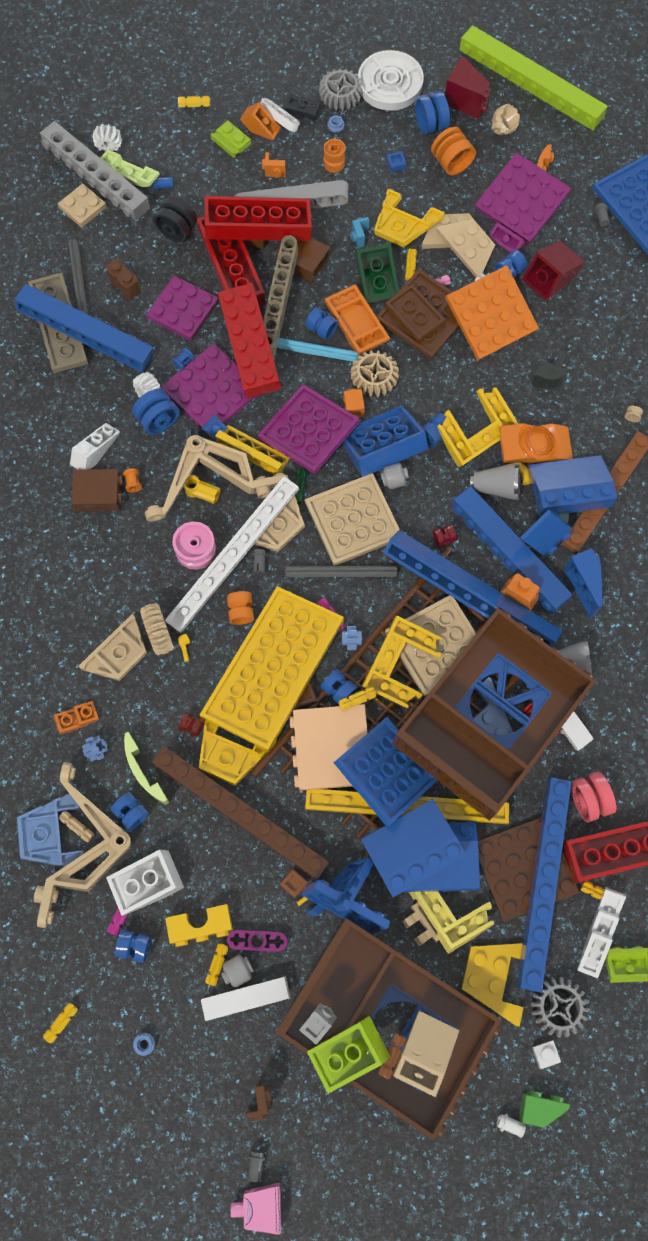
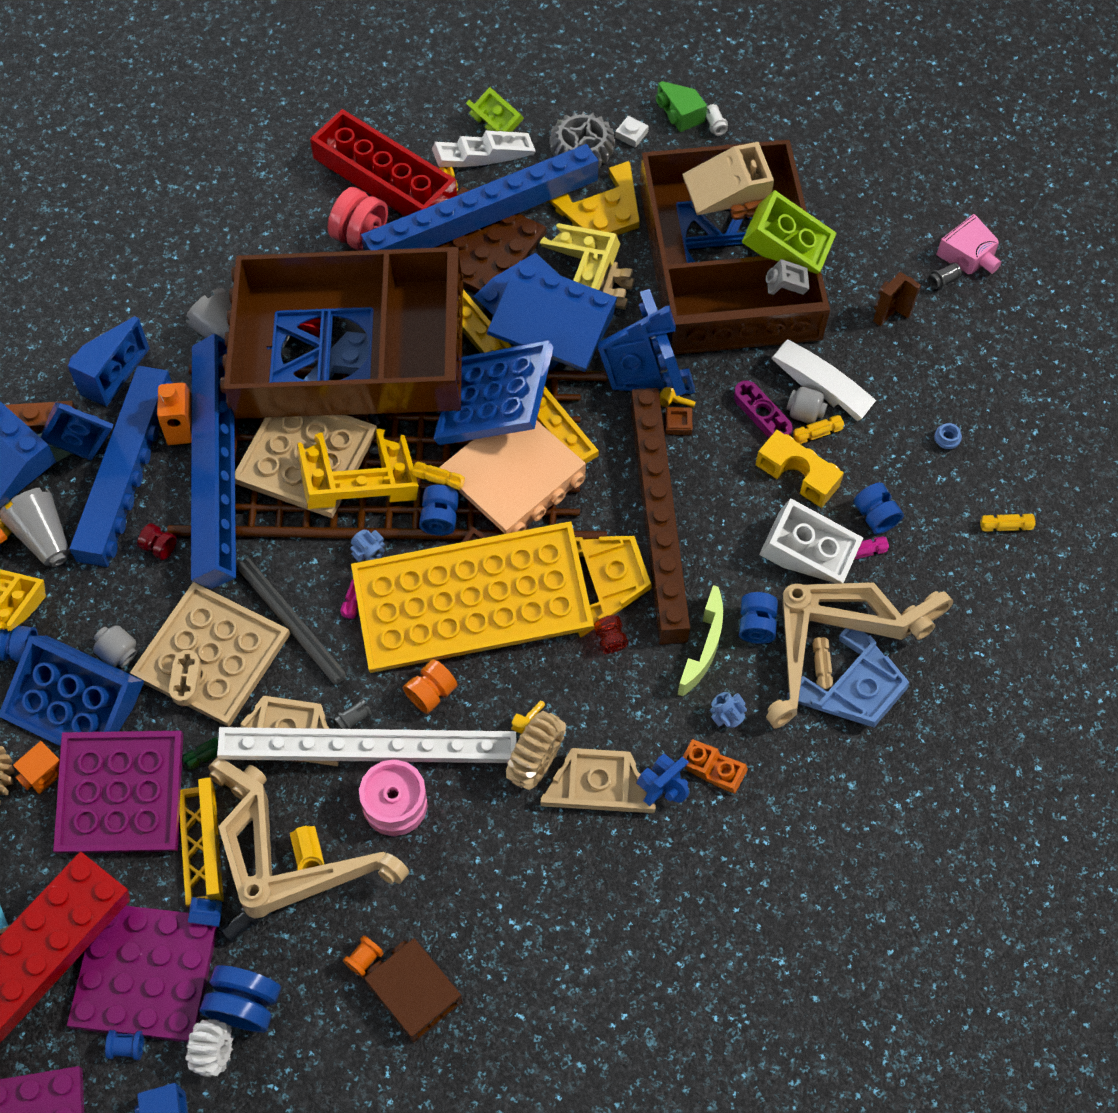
camera: 130 degrees left, 10 degrees down
(86, 671) = (668, 782): none -> blue hips
(93, 447) = (353, 1050): white slope -> none
(344, 497) = (178, 677): none -> tan beam

